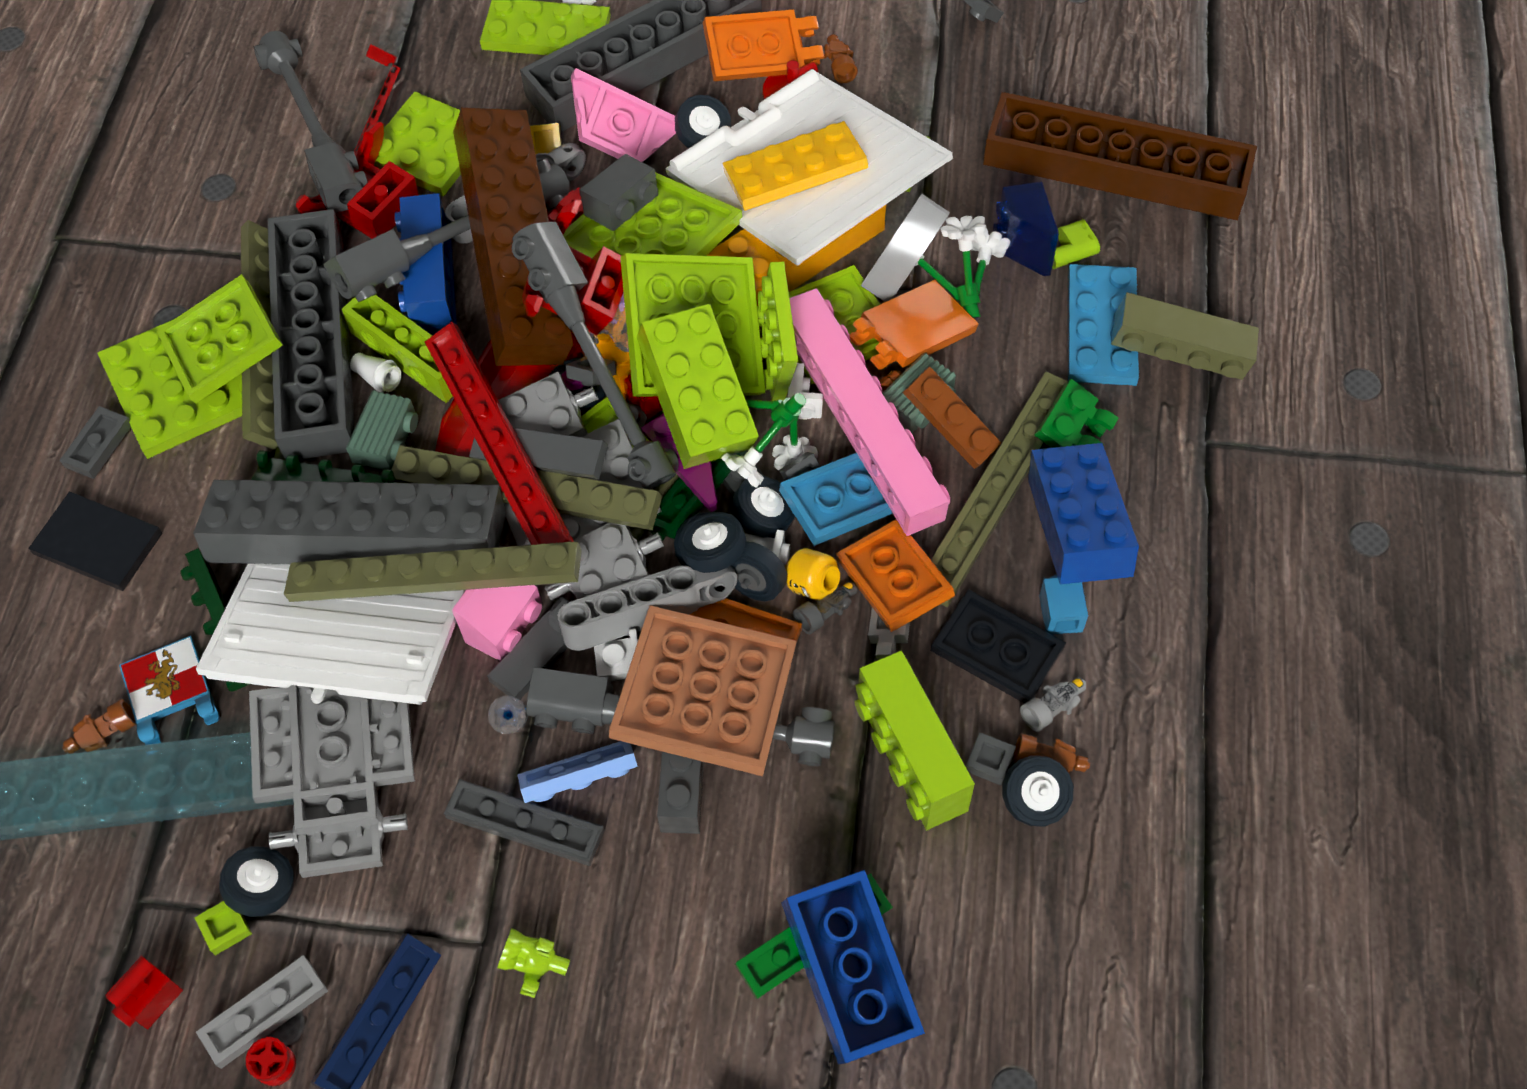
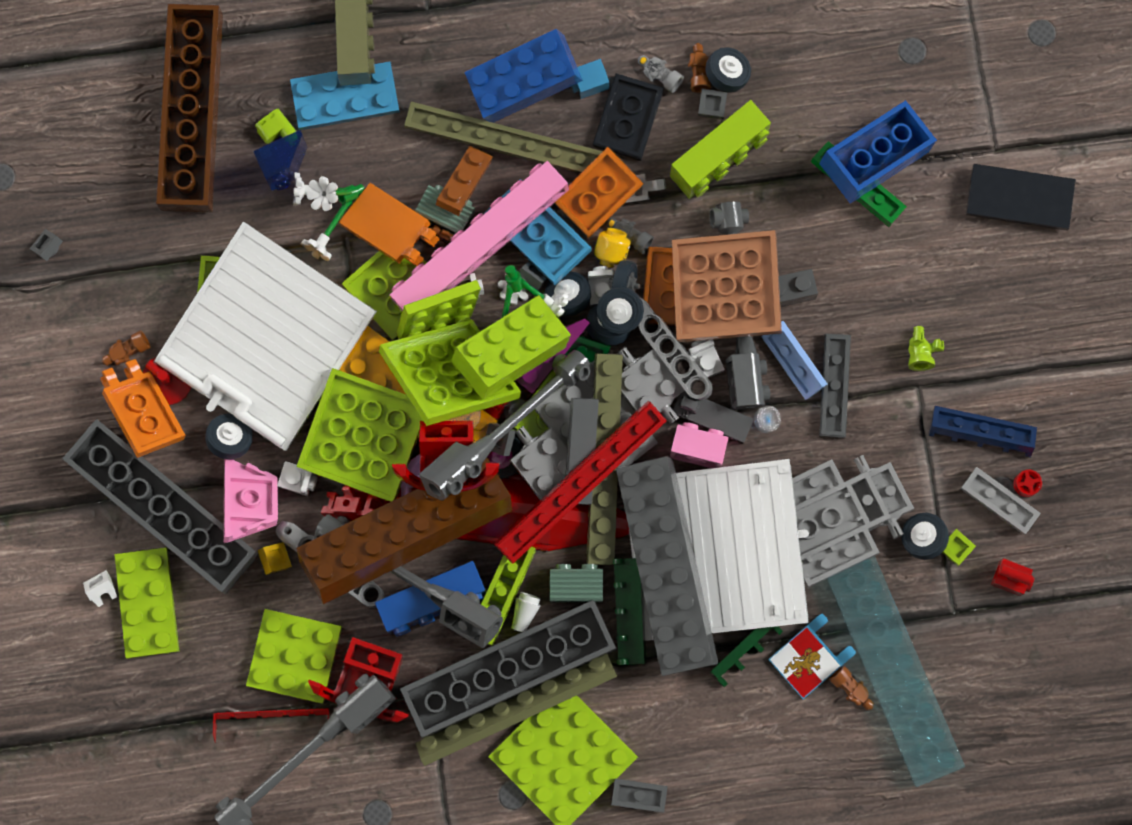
camera: 105 degrees left, 20 degrees up
(95, 541) = (715, 760): black tile -> none
(219, 338) = (541, 726): lime plate -> none
(434, 572) = (698, 487): olive plate -> none
(619, 192) = (342, 462): dark grey brick -> none
(795, 165) = (275, 341): yellow plate -> none
(905, 248) = (335, 241): light grey slope -> none
(1068, 415) = (443, 102): green plate -> none

